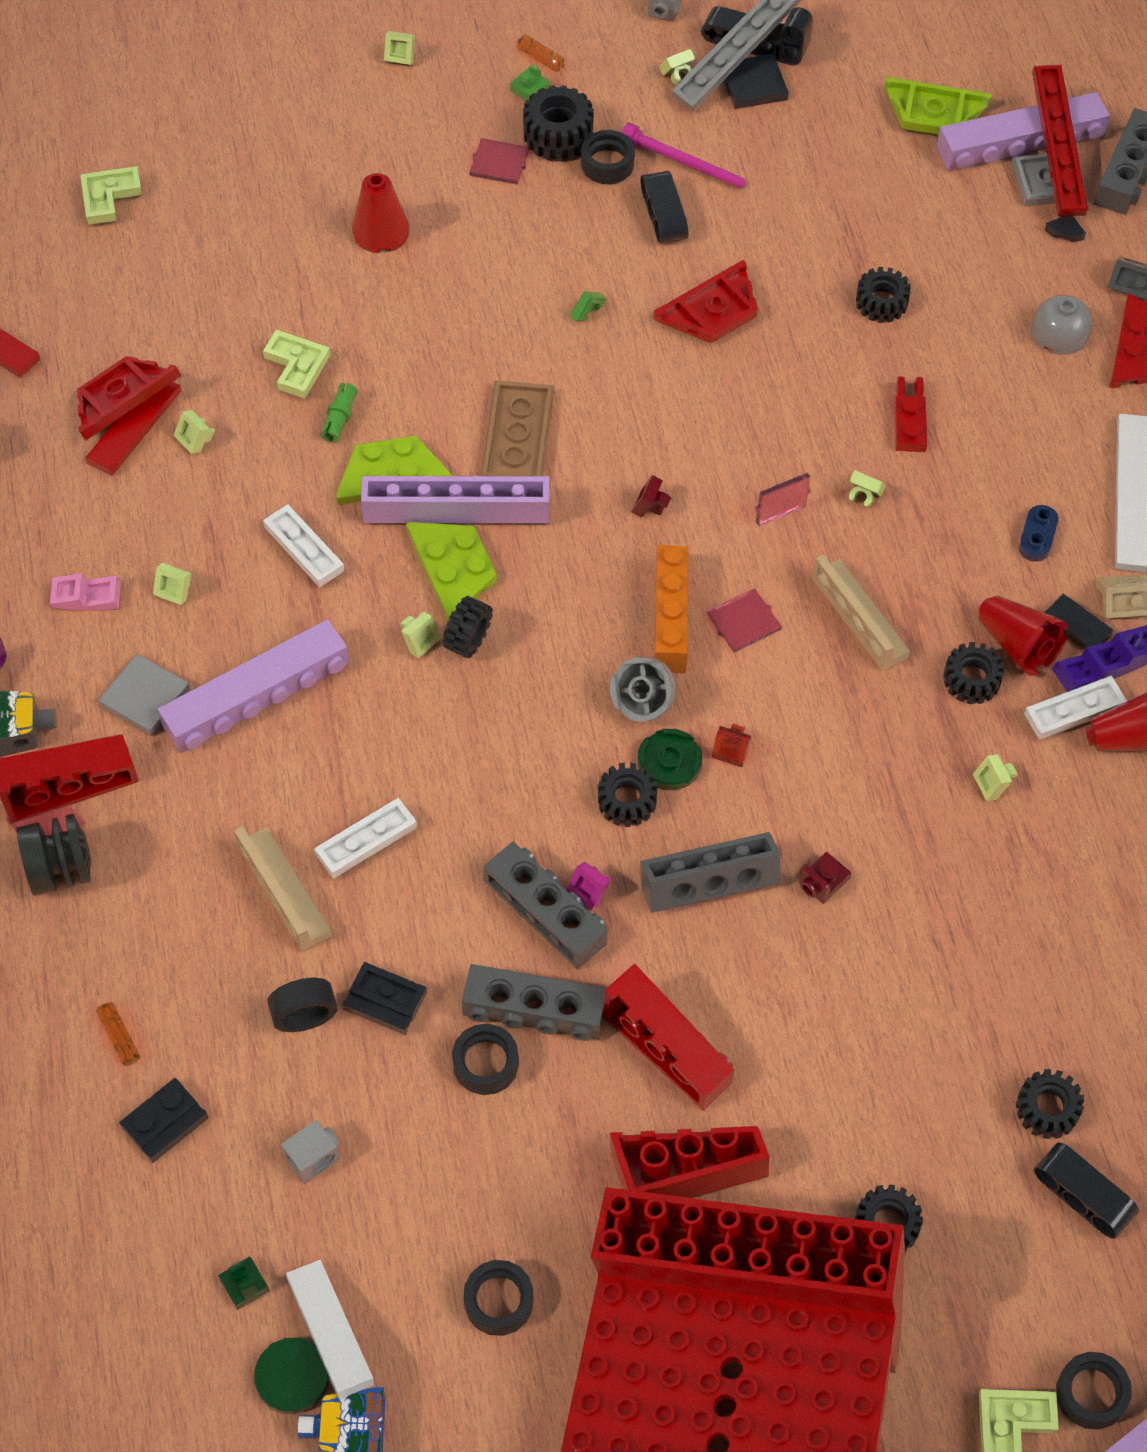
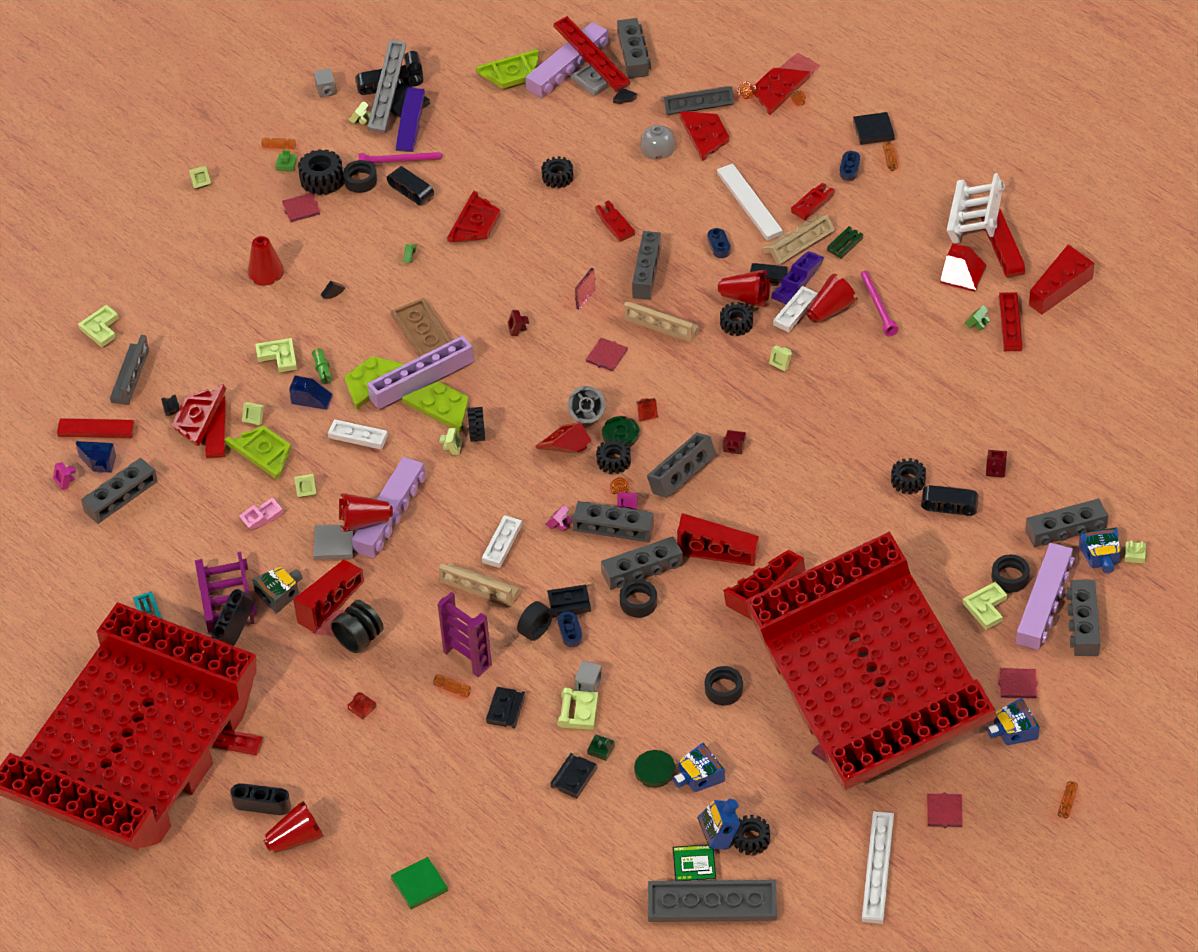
camera: 30 degrees left, 10 degrees down
(92, 280) = (130, 372): none -> dark grey fence
(98, 357) = (170, 405): none -> black wheel
(163, 495) = (262, 449): none -> lime wing
(168, 1305) = (573, 775): none -> black plate
(169, 978) = (475, 629): none -> magenta fence
(191, 677) = (362, 512): none -> red cone
(269, 1201) = (584, 712): none -> yellowish green plate
(288, 444) = (309, 393): none -> clear blue slope
(330, 1329) = (658, 737): white tile -> none
(349, 1049) = (570, 633): none -> dark blue plate
(441, 306) = (332, 290): none -> black tile
(470, 848) = (557, 518): none -> dark pink tile
(577, 726) = (566, 439): none -> red slope
(602, 842) = (619, 485): none -> clear orange plate
(672, 606) = (559, 352): orange arch -> none
(736, 108) = (410, 119): none -> dark purple slope
(866, 485) = (620, 262): yellowish green tile -> none
(901, 510) = (646, 265): none -> dark grey brick

